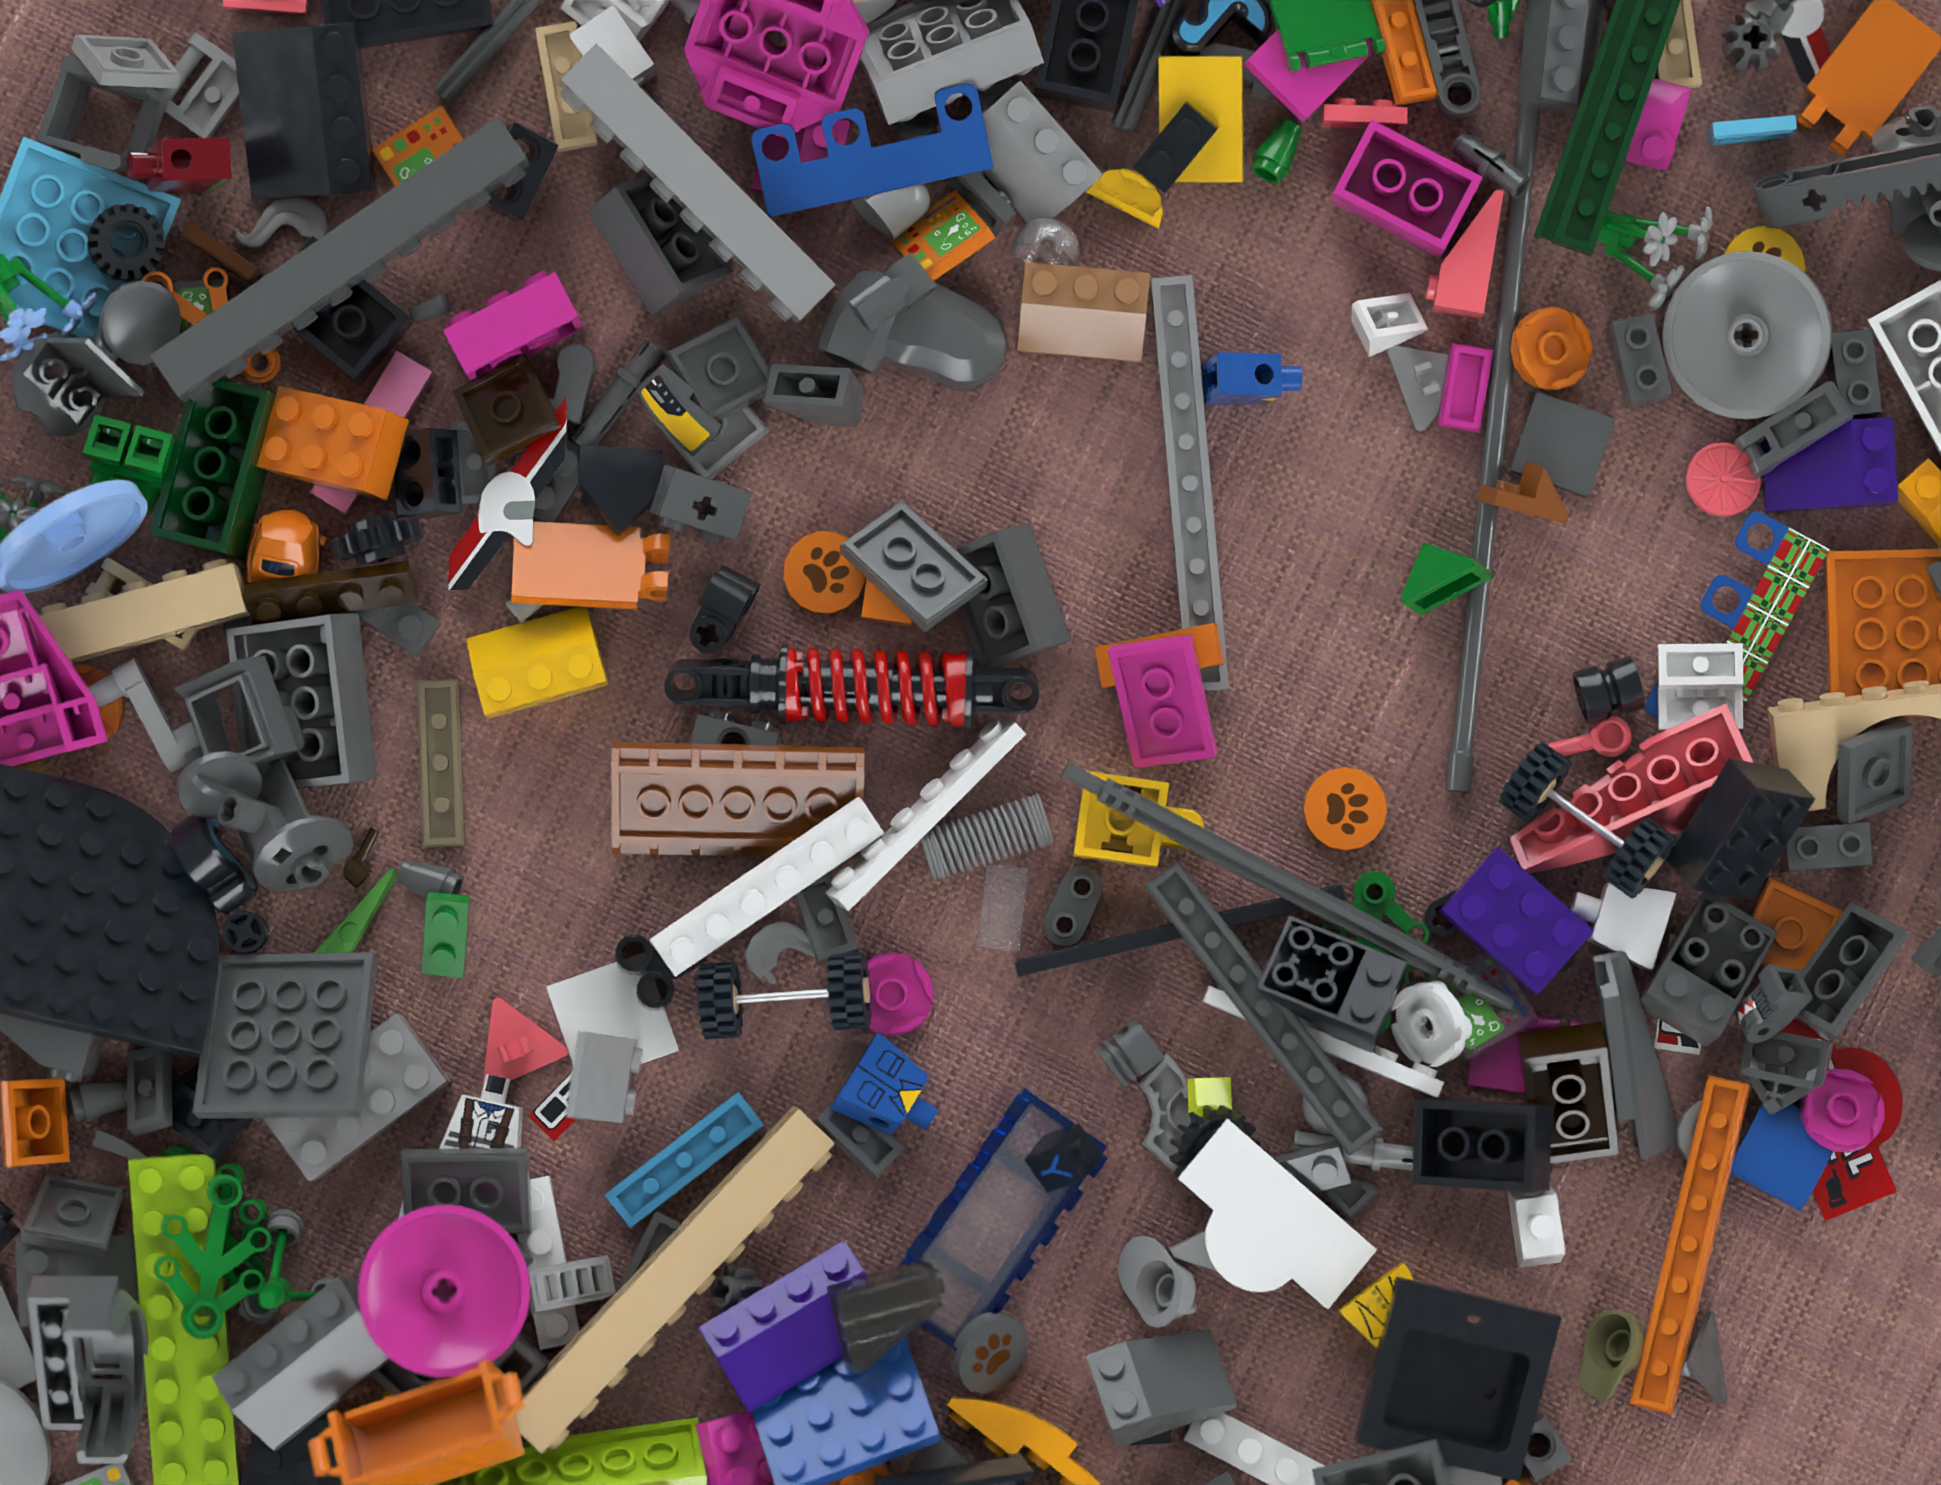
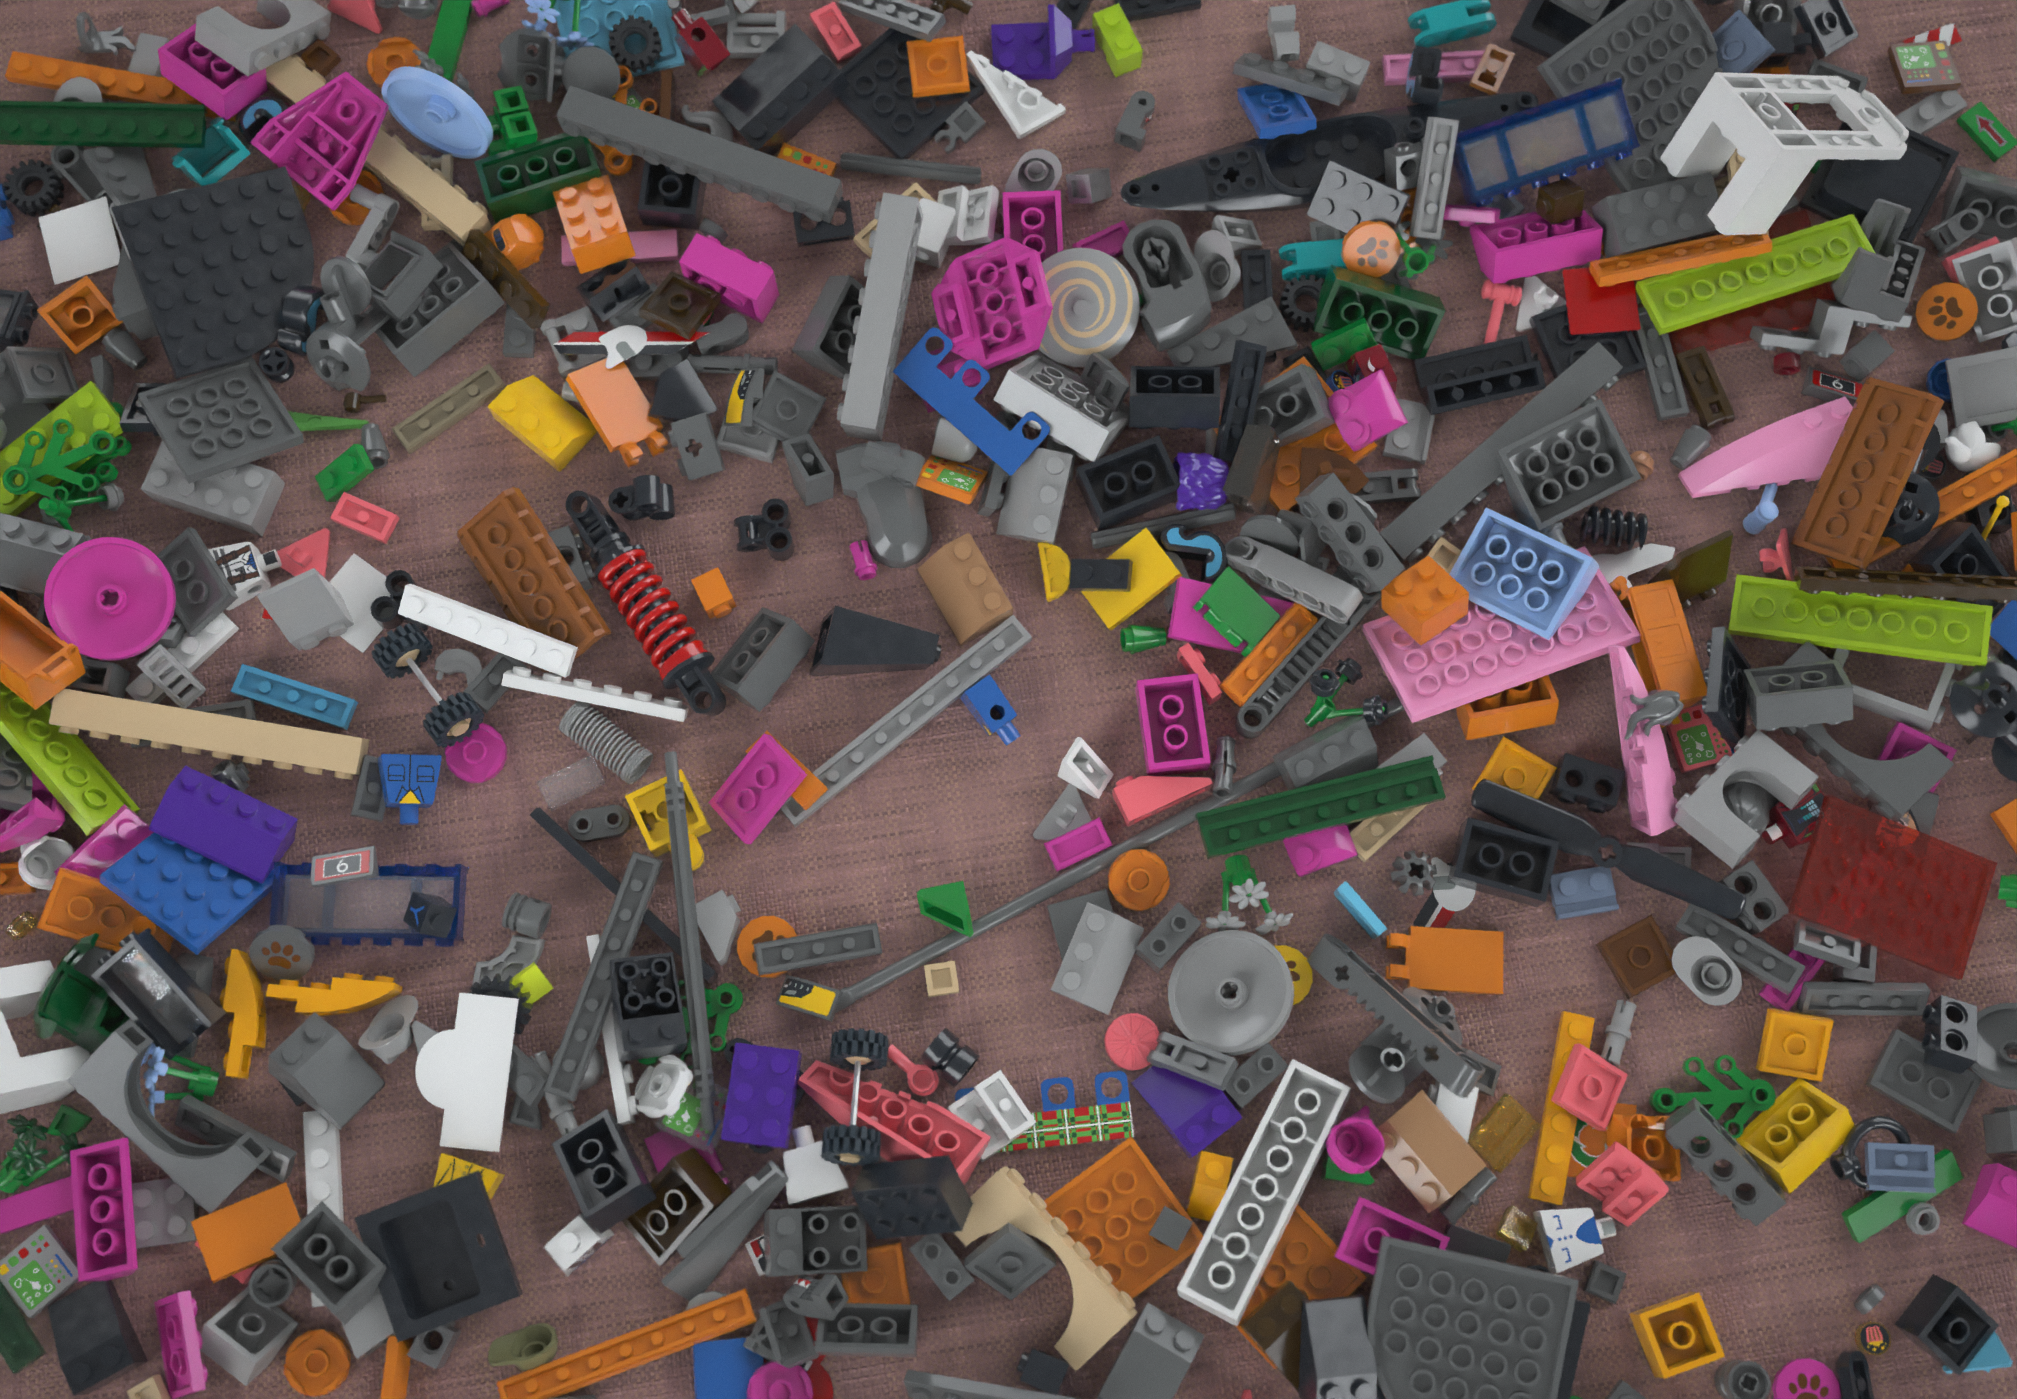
camera: 55 degrees right, 10 degrees down
(149, 1090) = (142, 370): dark grey plate -> none
(376, 539) = (553, 283): black gear -> none
(435, 547) = (576, 321): none -> light grey plate
(515, 945) = (364, 517): none -> coral plate
(820, 576) = (707, 545): orange tile -> none
(853, 493) = (766, 531): none -> black piece
(882, 1309) = (261, 865): clear smoke slope -> none
(913, 566) = (741, 590): tile -> none
(942, 1219) = (344, 867): none -> slope
(966, 405) = (863, 561): none -> dark pink pin
(1047, 241) = (992, 538): clear hair -> none
(1071, 472) = (867, 644): none -> black slope
(1085, 1310) = (346, 994): none -> light orange slope
(1285, 844) = (719, 923): none -> light grey slope
(1387, 755) = (817, 949): none -> dark grey tile
(1435, 801) = (809, 998): none -> slope
(1513, 641) = (941, 979): none -> tan plate
(1532, 496) = (1036, 930): dark orange slope -> none
(1608, 456) = (1097, 958): none -> light grey slope

